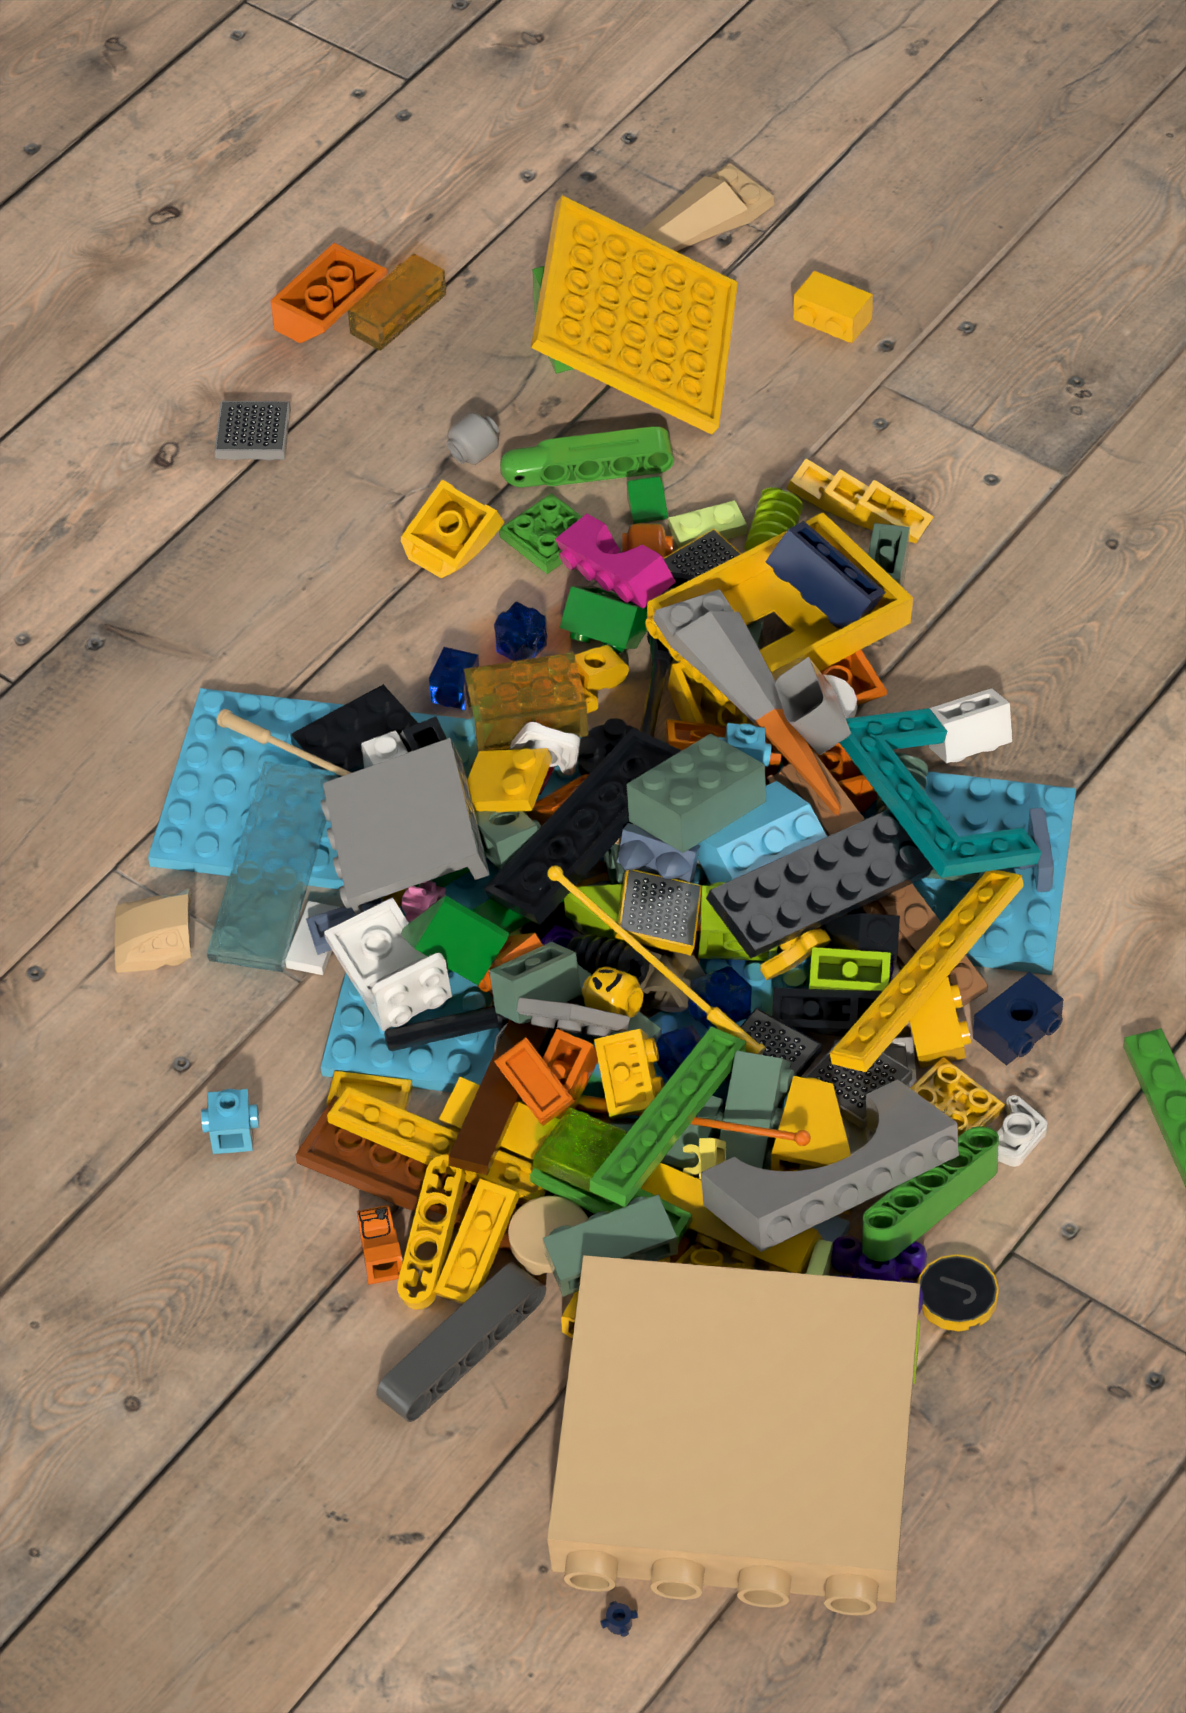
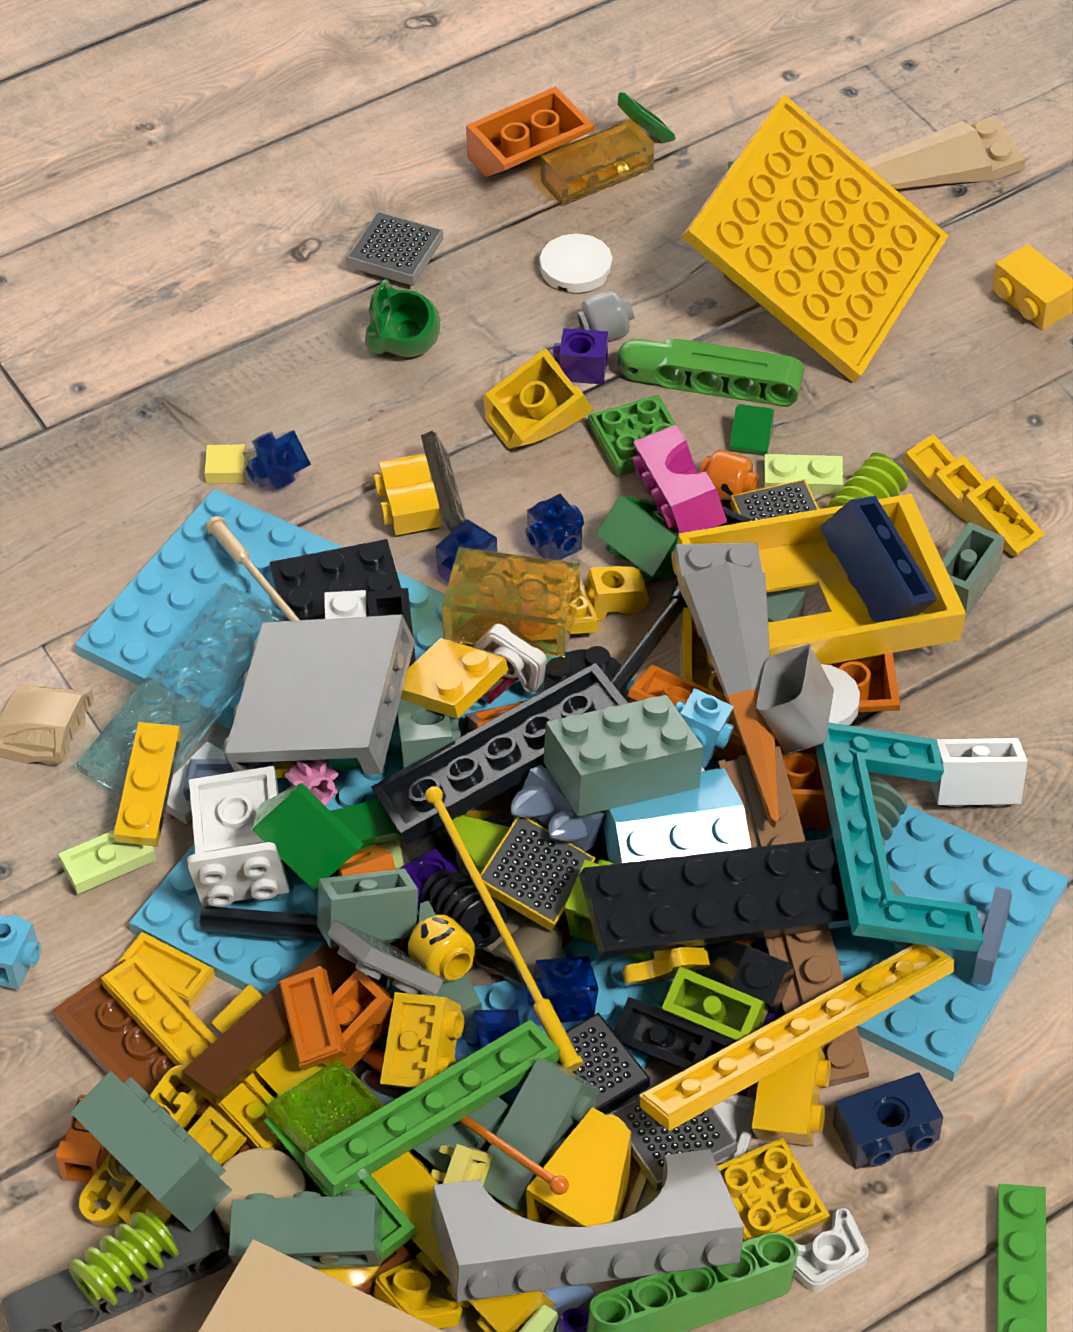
camera: 20 degrees right, 0 degrees up
(197, 664) = (225, 464): none -> light yellow tile
(245, 646) = (275, 459): none -> clear blue brick
(273, 1021) = (102, 861): none -> yellowish green plate
(283, 948) = (147, 784): none -> yellow plate
(297, 494) = (401, 322): none -> green piece
(377, 642) = (408, 493): none -> yellow brick
(404, 622) = (443, 480): none -> clear smoke tile
(420, 398) = (576, 263): none -> white tile
(423, 250) = (645, 118): none -> green tile
(455, 1223) = (153, 1148): none -> sand green brick
(469, 1316) = (122, 1258): none -> lime piece
(472, 475) = (583, 355): none -> dark purple brick

